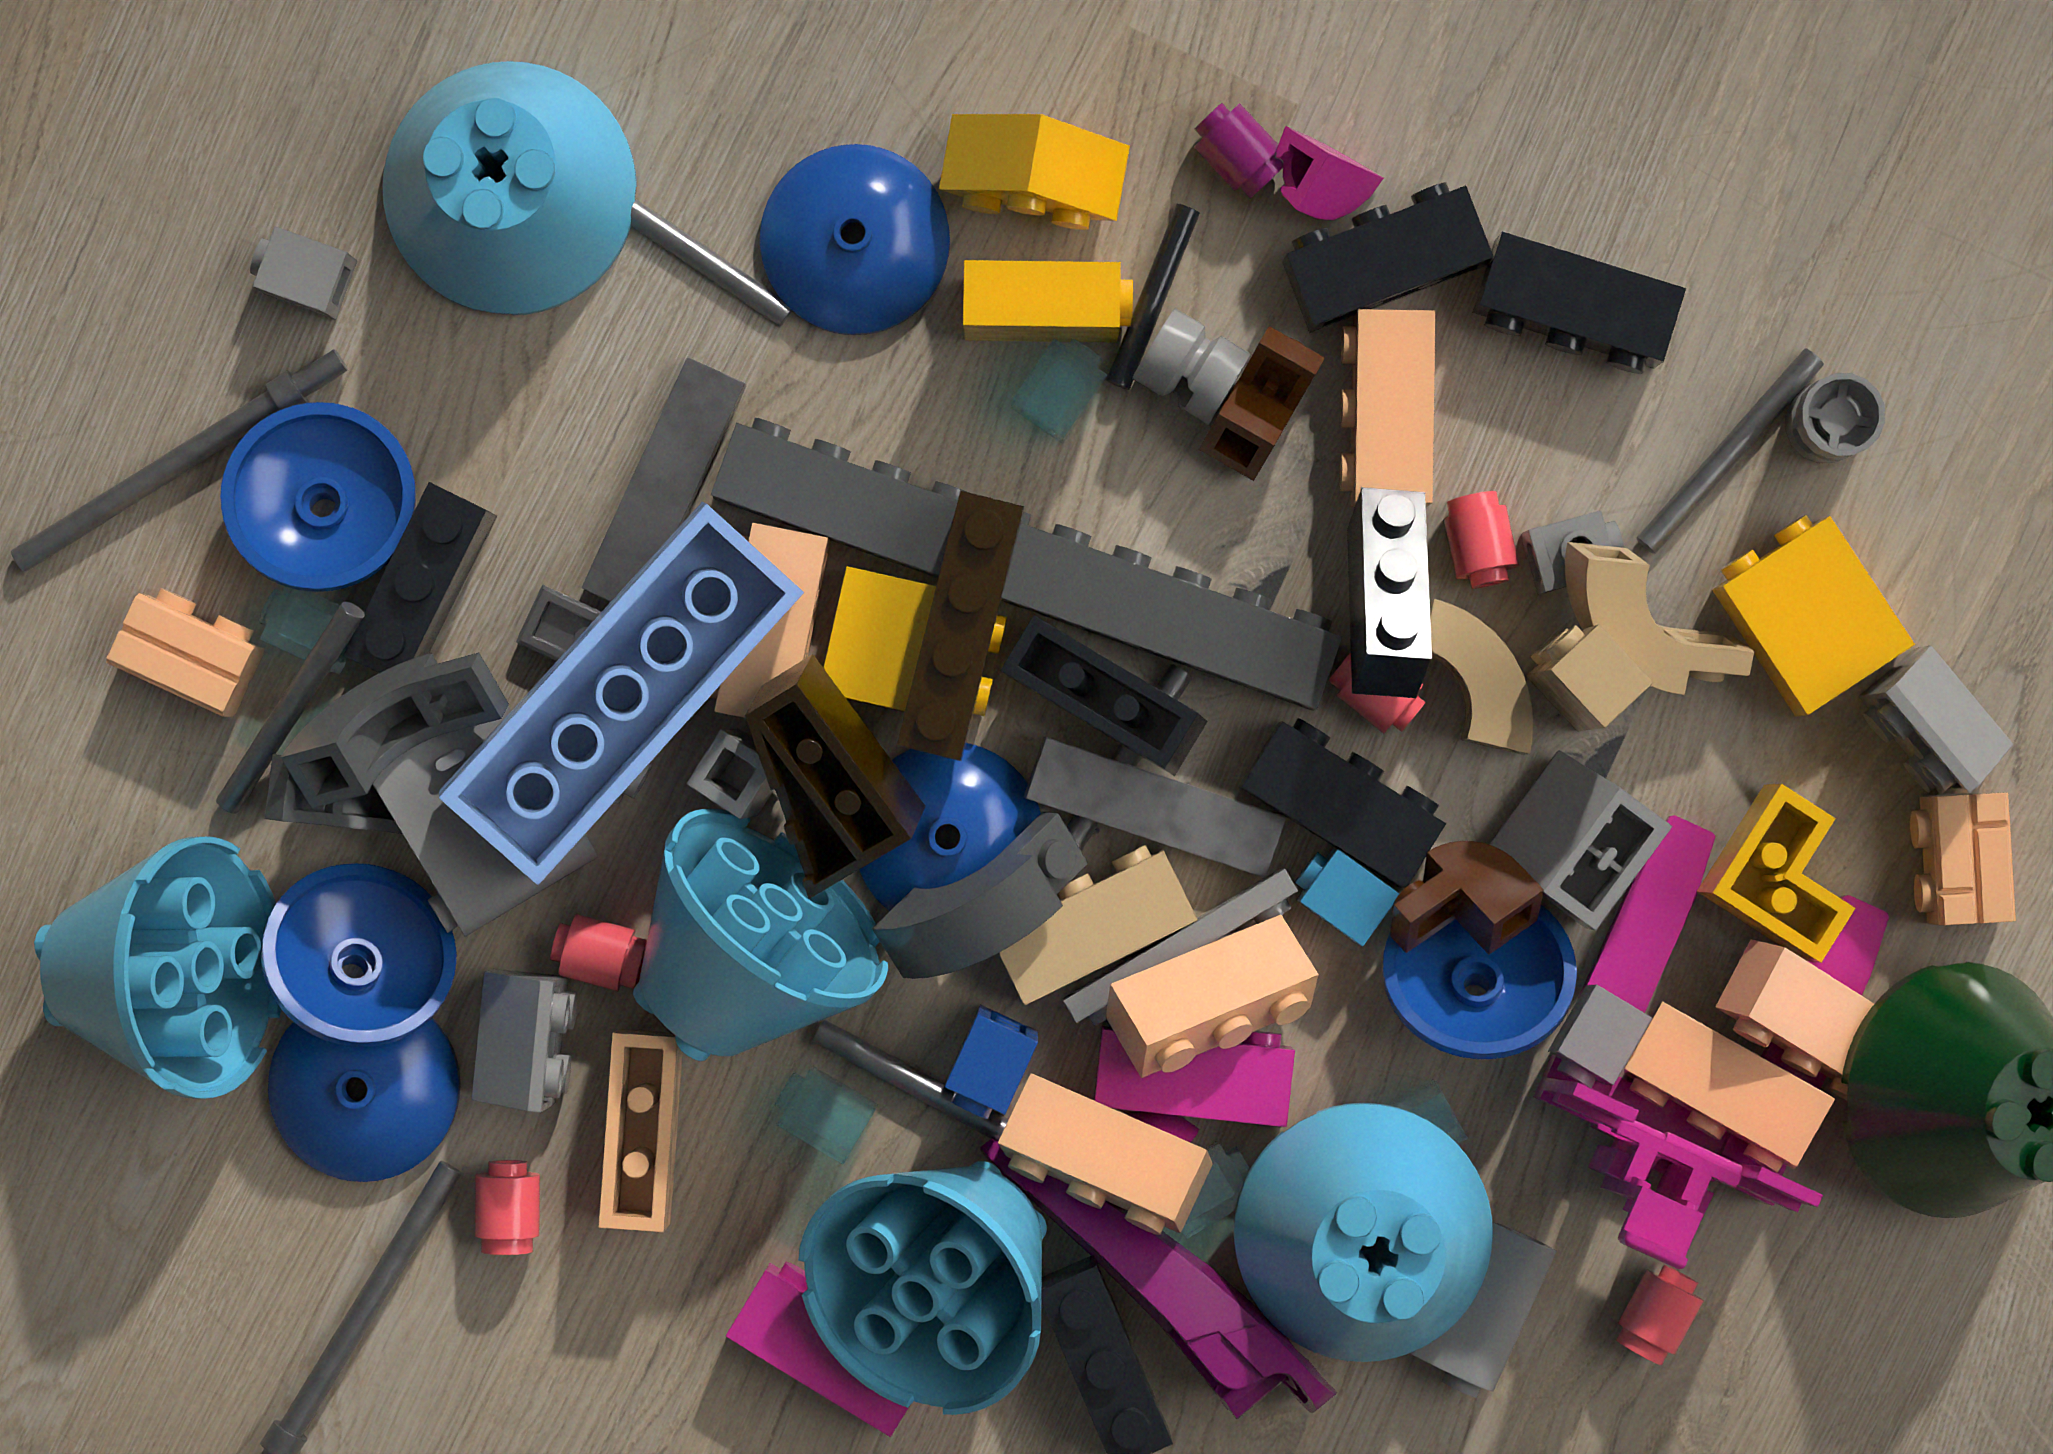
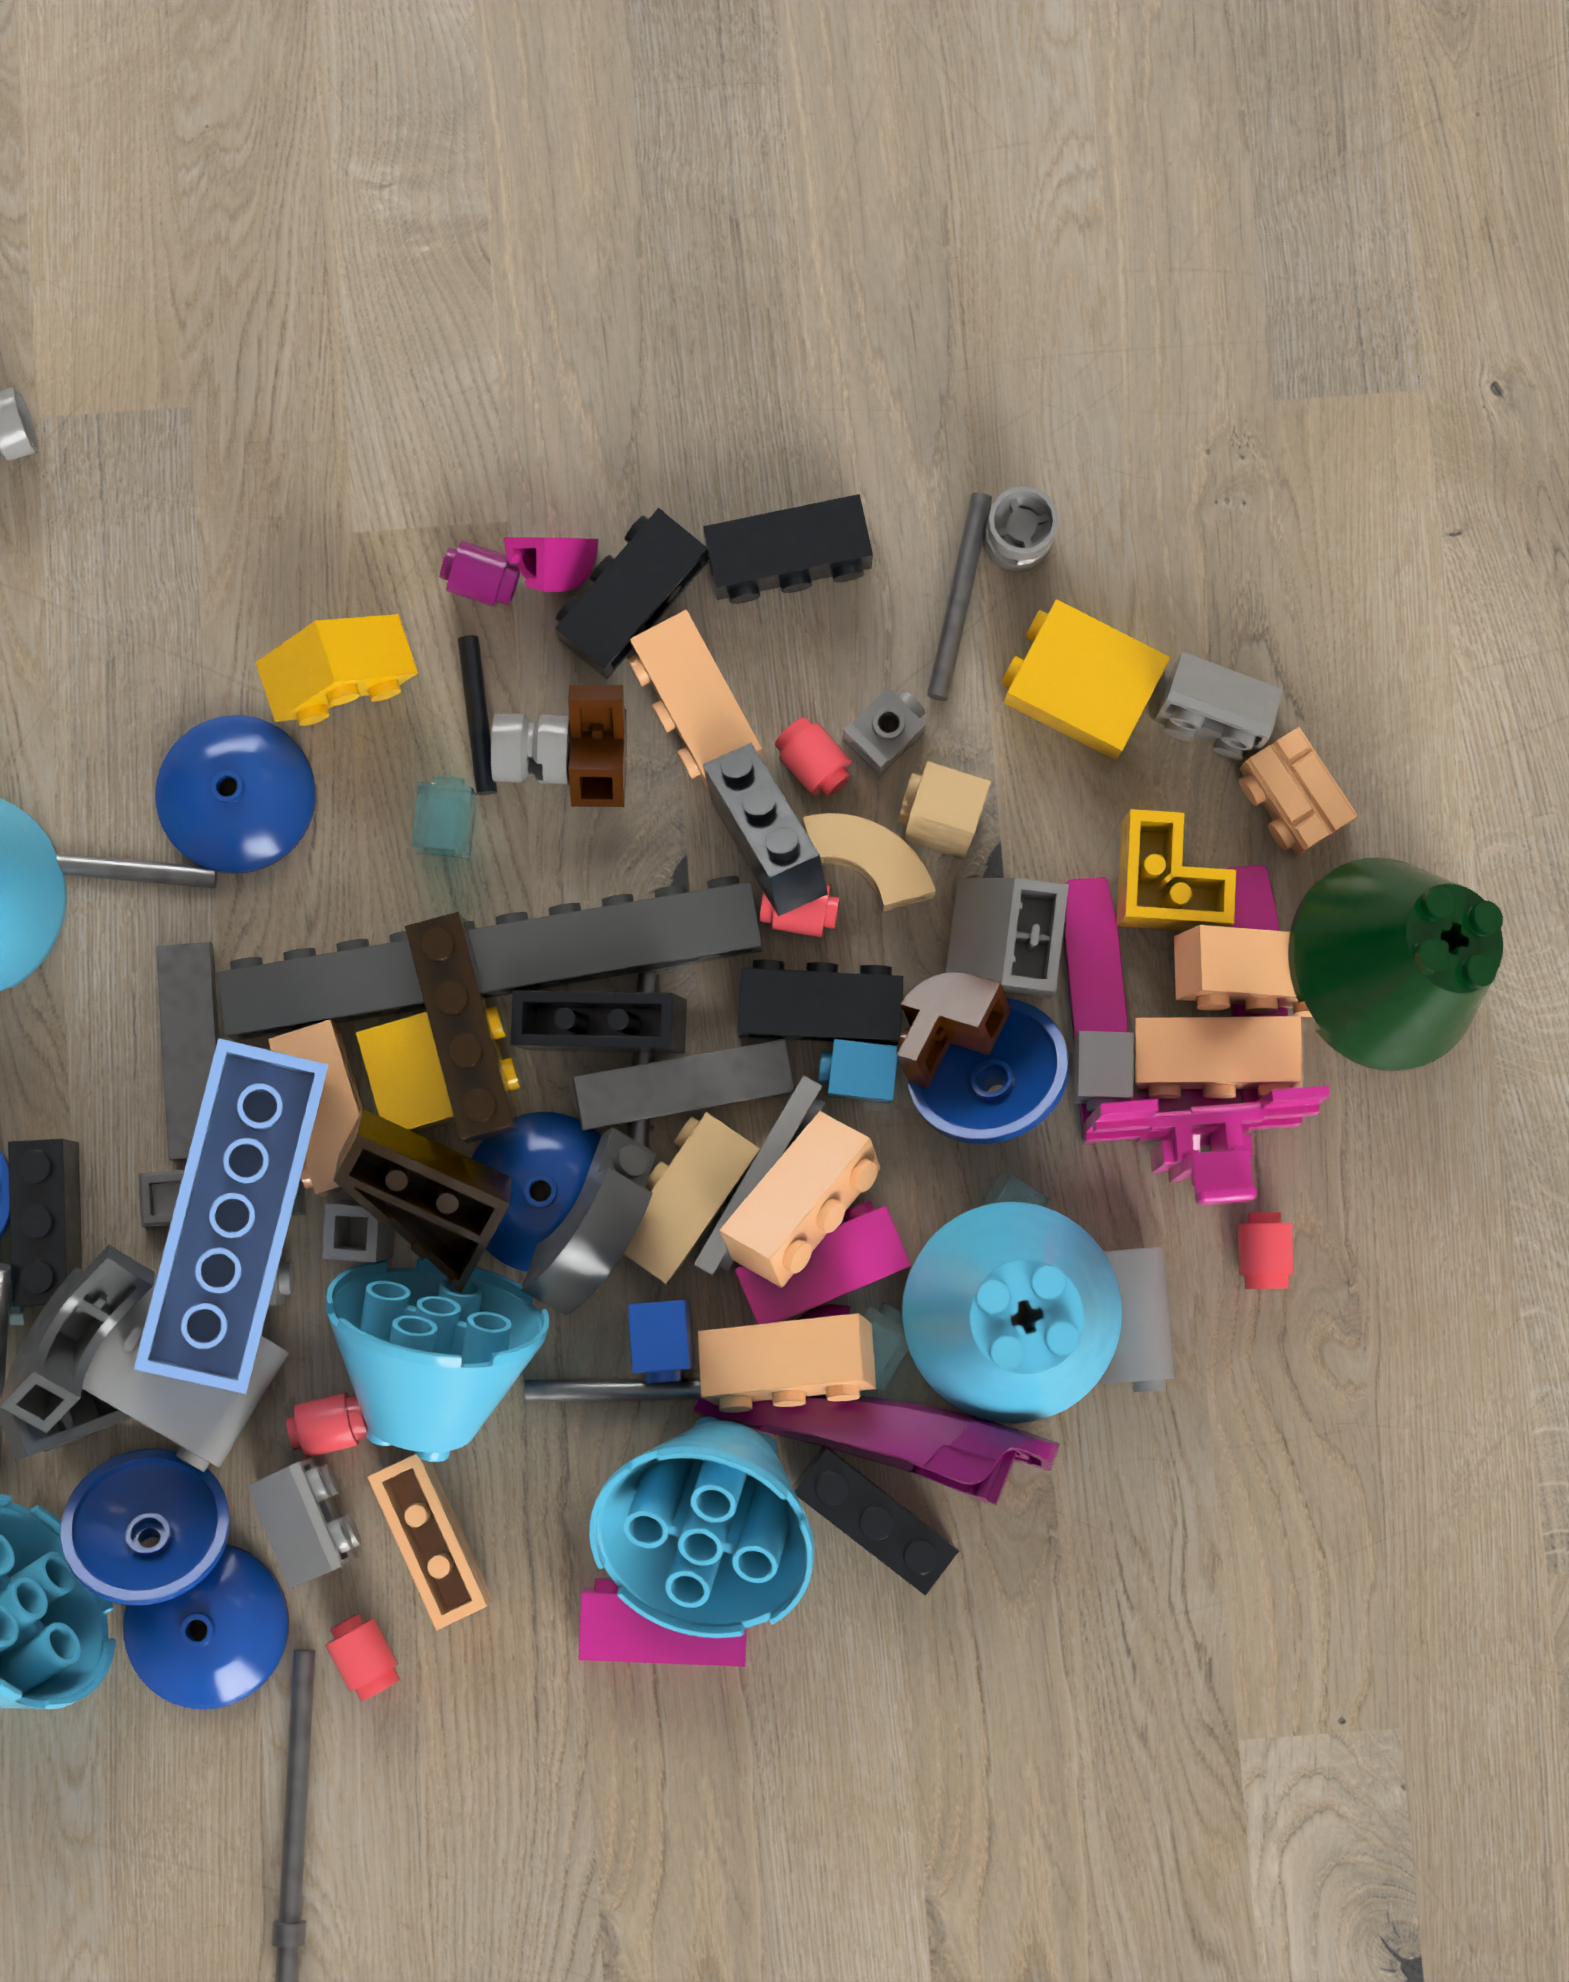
camera: 30 degrees left, 5 degrees down
(824, 1112) = (562, 1449): clear light blue brick -> none
(1045, 301) = (395, 756): yellow brick -> none
(1610, 590) = (928, 735): tan arch -> none

